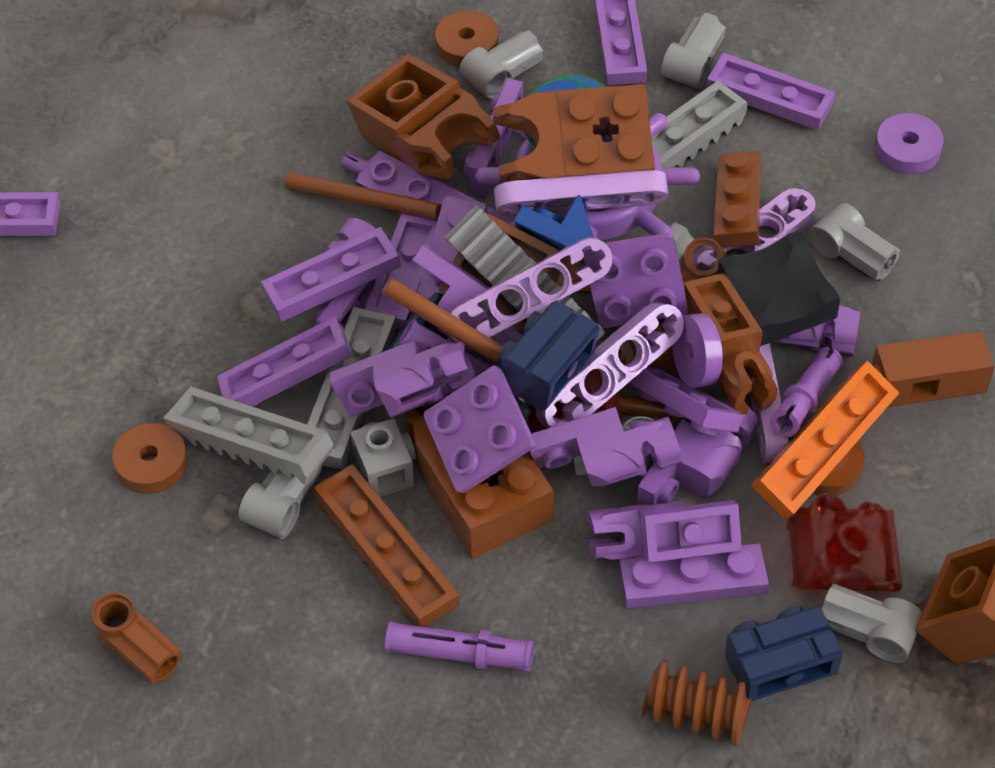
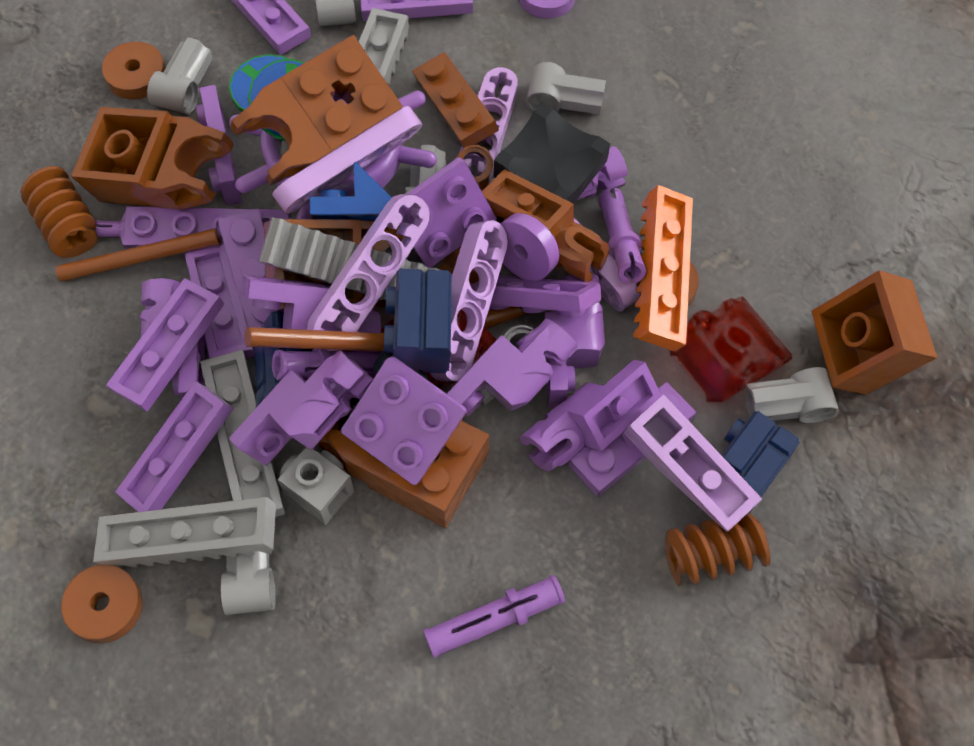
camera: 35 degrees left, 10 degrees up
(320, 128) = (59, 212): none -> dark orange piece
(386, 547) = (372, 563): dark orange gear -> none
(715, 606) = (692, 463): none -> lavender slope
(935, 367) = (697, 160): dark orange brick -> none

